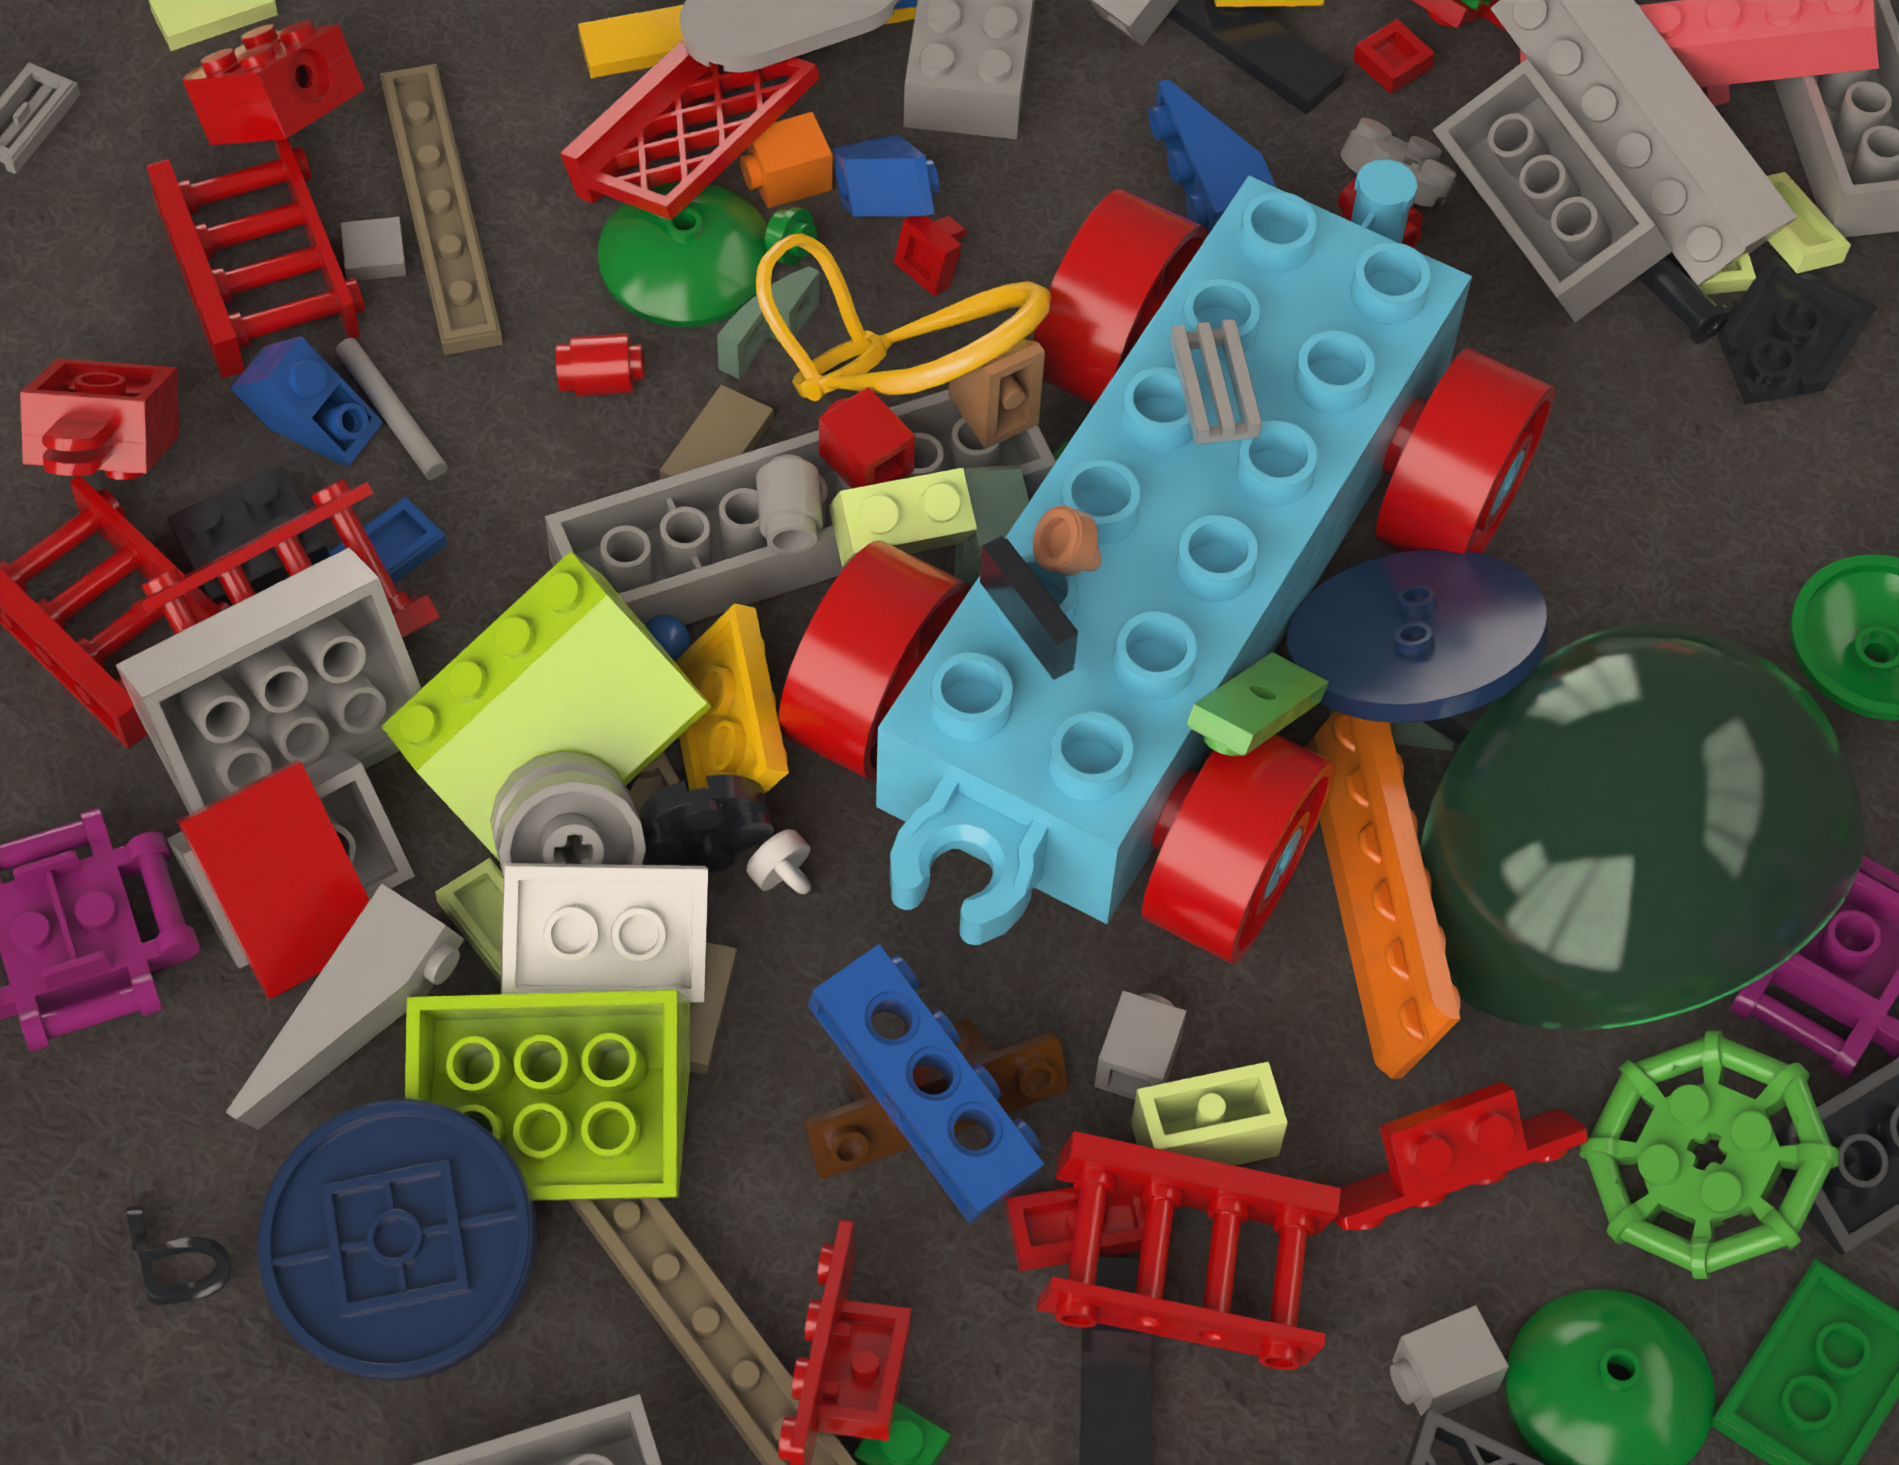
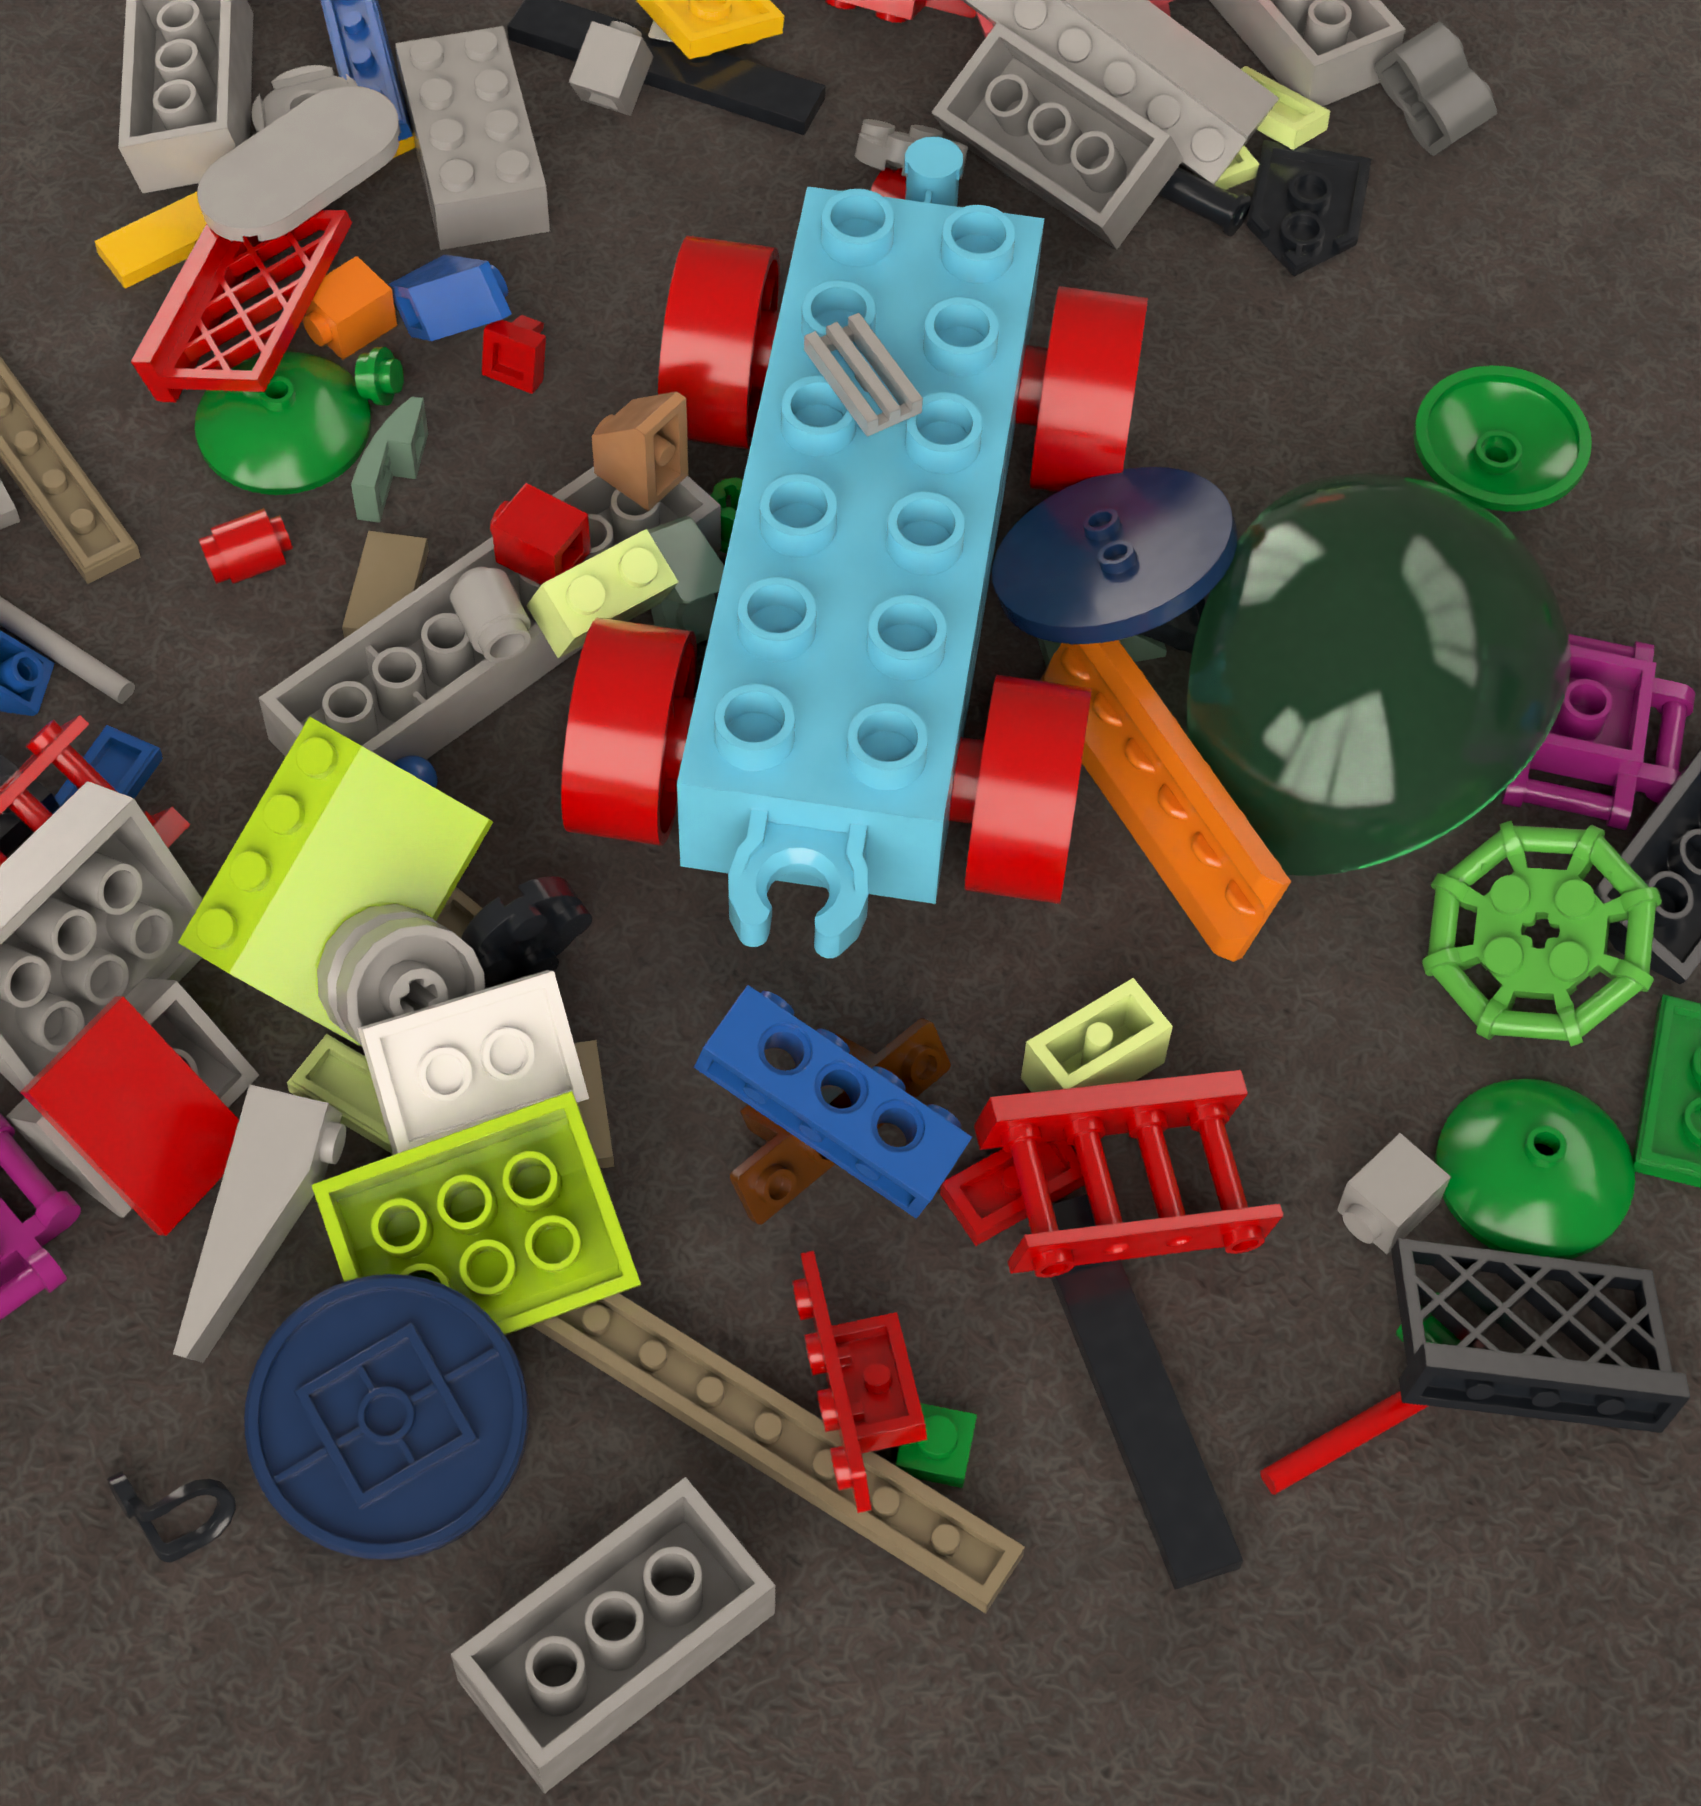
camera: 20 degrees left, 0 degrees up
(742, 726) = (527, 829): yellow plate -> none
(780, 860) = (604, 946): white tile -> none
(873, 348) = (501, 454): yellow animal -> none
(1028, 607) = (781, 626): black tile -> none
(1067, 541) = (791, 556): nougat tile -> none
(1139, 1044) = (1003, 1005): light grey brick -> none
(1203, 154) = (736, 196): blue slope -> none
(1255, 705) = (1010, 657): bright green tile -> none
(1393, 56) = (863, 61): red plate -> none
(1454, 1147) = (1322, 1001): red bracket -> none

